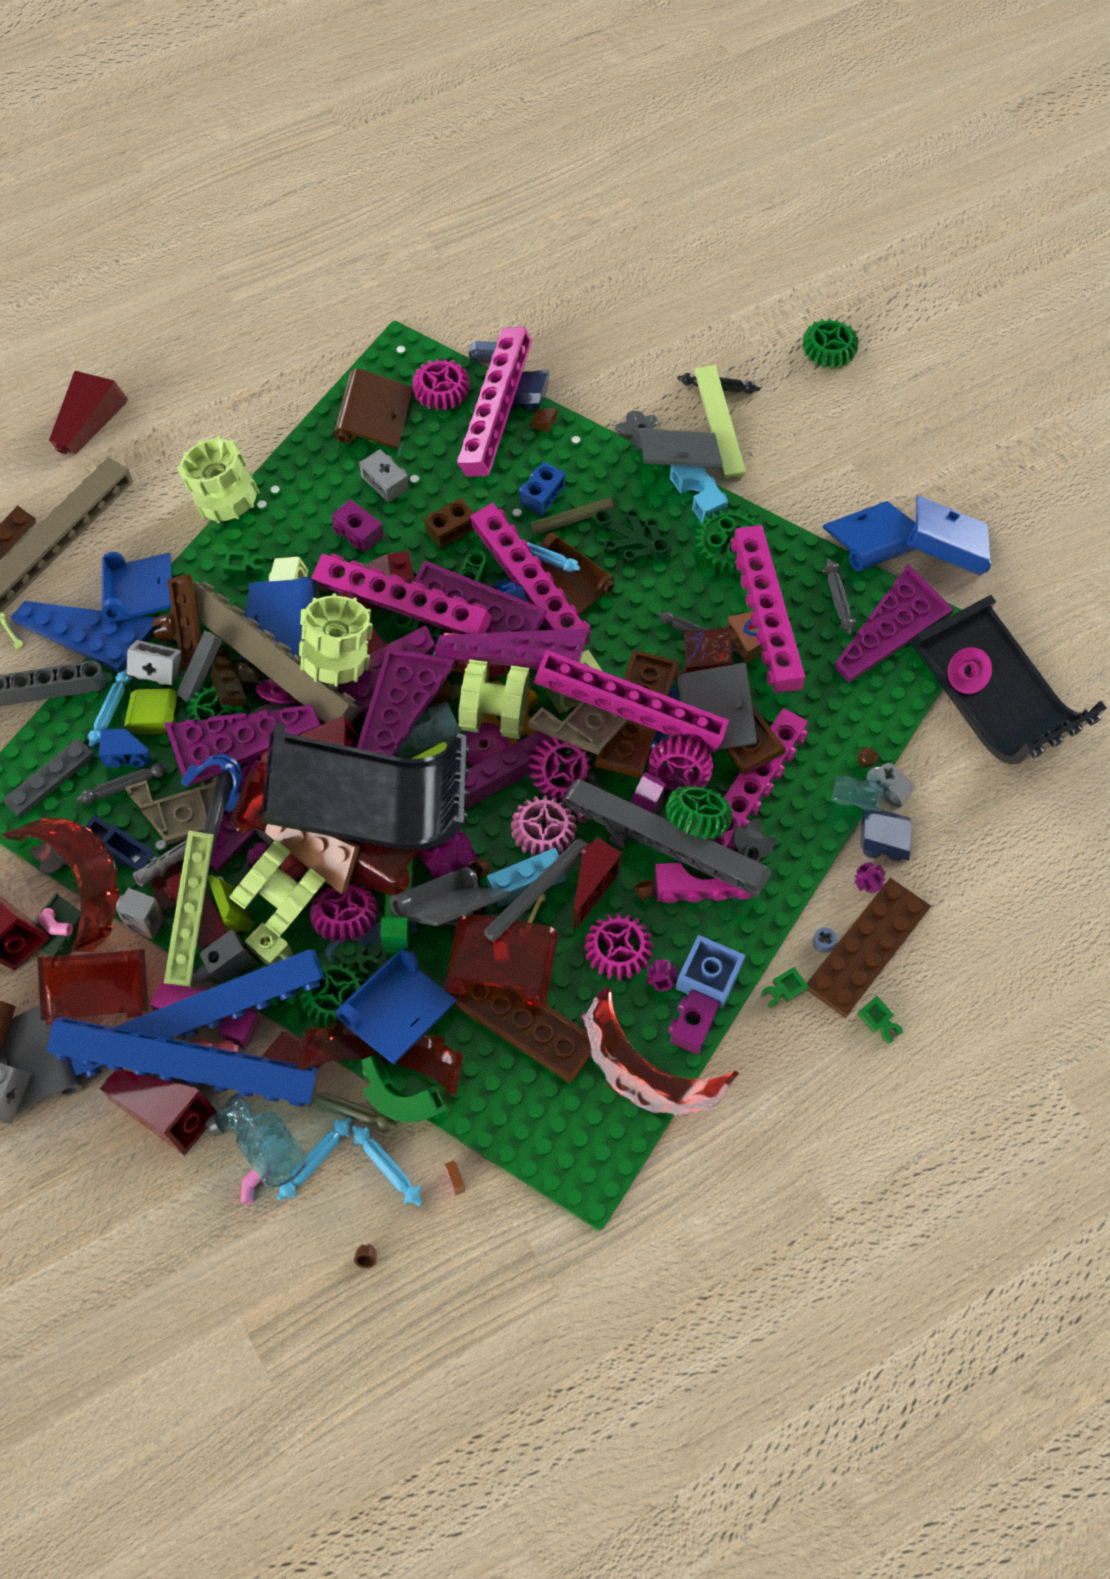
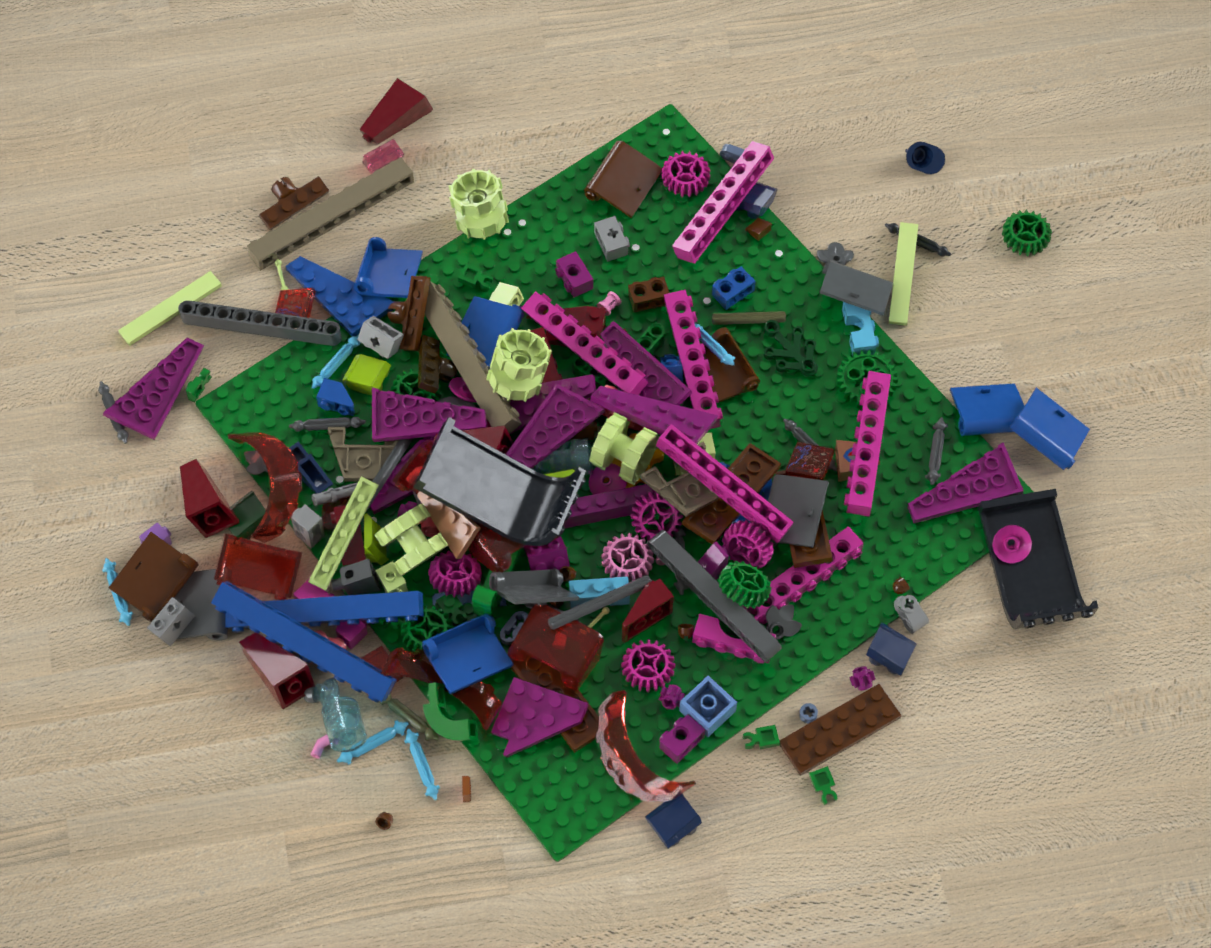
camera: 20 degrees right, 0 degrees up
(37, 653) = (296, 302): none -> clear red tile
(48, 778) = (274, 402): dark grey plate -> none
(52, 927) = (240, 510): bright pink arm -> none
(85, 462) = (382, 156): none -> clear pink hinge
(199, 666) = (412, 351): dark grey tile -> none
(227, 764) = (407, 434): blue helmet -> none
(410, 545) = (609, 302): none -> bright pink bush
(434, 954) = (511, 625): none -> sand blue beam
(506, 1055) = (534, 715): none -> magenta wing
(691, 297) = (925, 157): none -> dark blue piece
(723, 1128) = (674, 820): none -> dark blue slope
(864, 793) = (882, 613): clear light blue brick -> none

